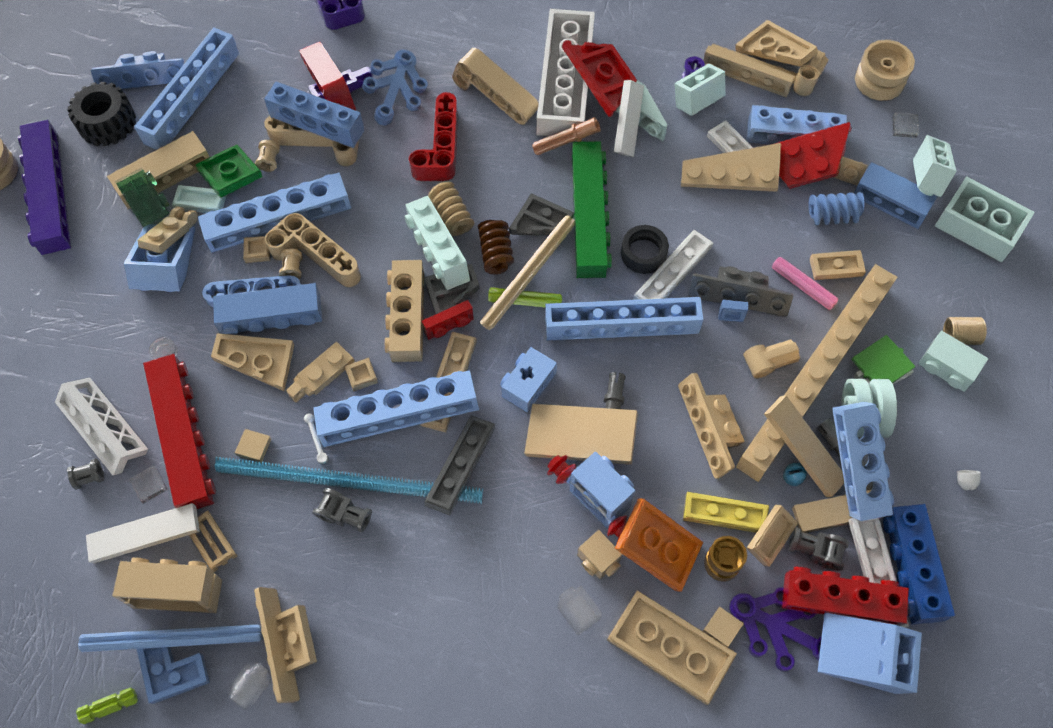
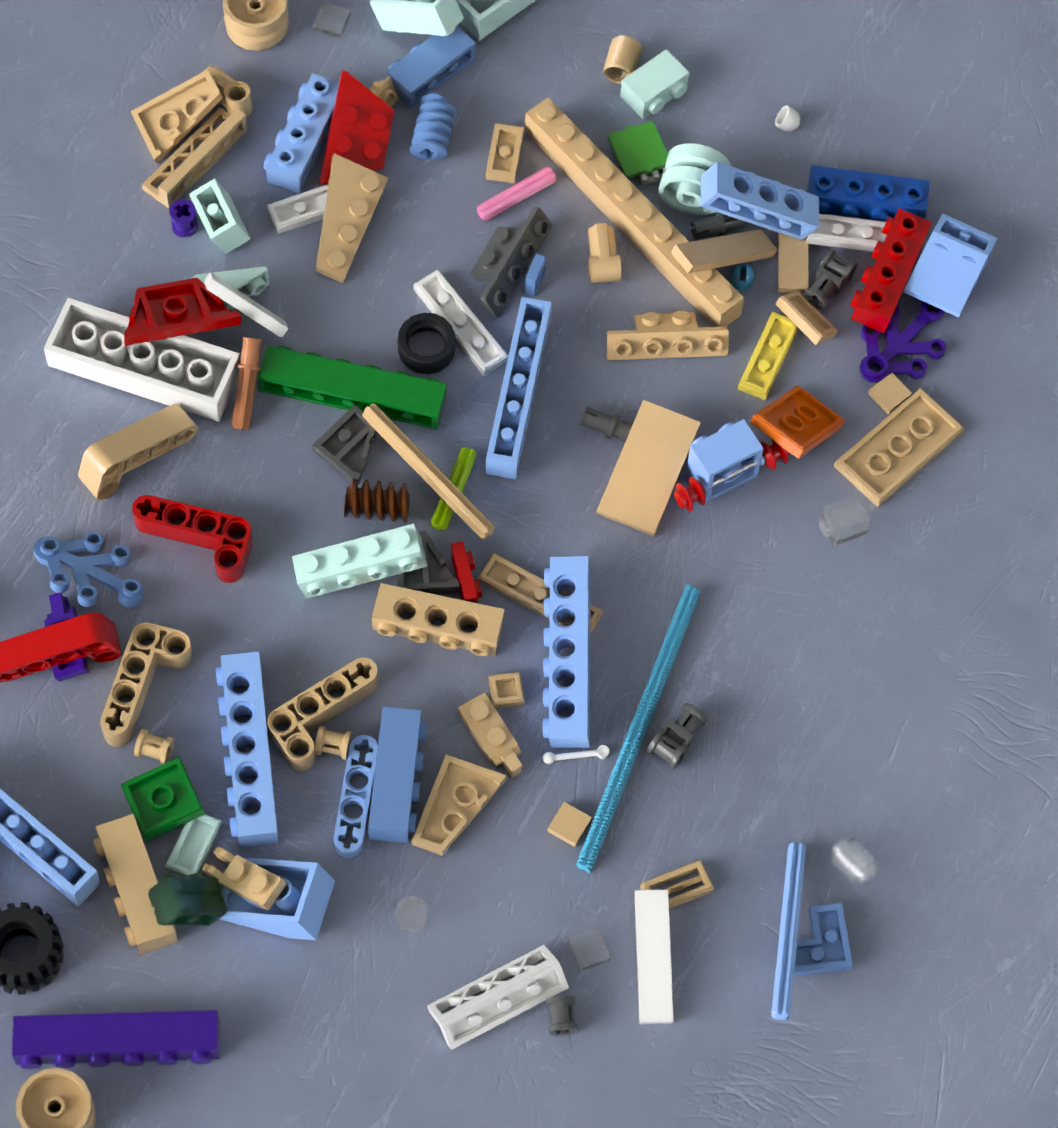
camera: 80 degrees left, 0 degrees up
(106, 705) = (843, 1016): lime axle -> none
(167, 586) = (730, 922): tan piece -> none
(178, 432) = (534, 901): red brick -> none
(255, 250) = (293, 784): tan tile -> none
(286, 642) = (814, 812): tan bracket -> none
(314, 114) = (131, 661): medium blue brick -> none
(451, 208) = (308, 540): tan piece -> none
(459, 465) = (653, 600): dark grey tile -> none
(526, 392) = (562, 492): light blue brick -> none
(599, 556) = (790, 486): tan brick -> none
(725, 558) = (824, 366): pearl gold wheel -> none

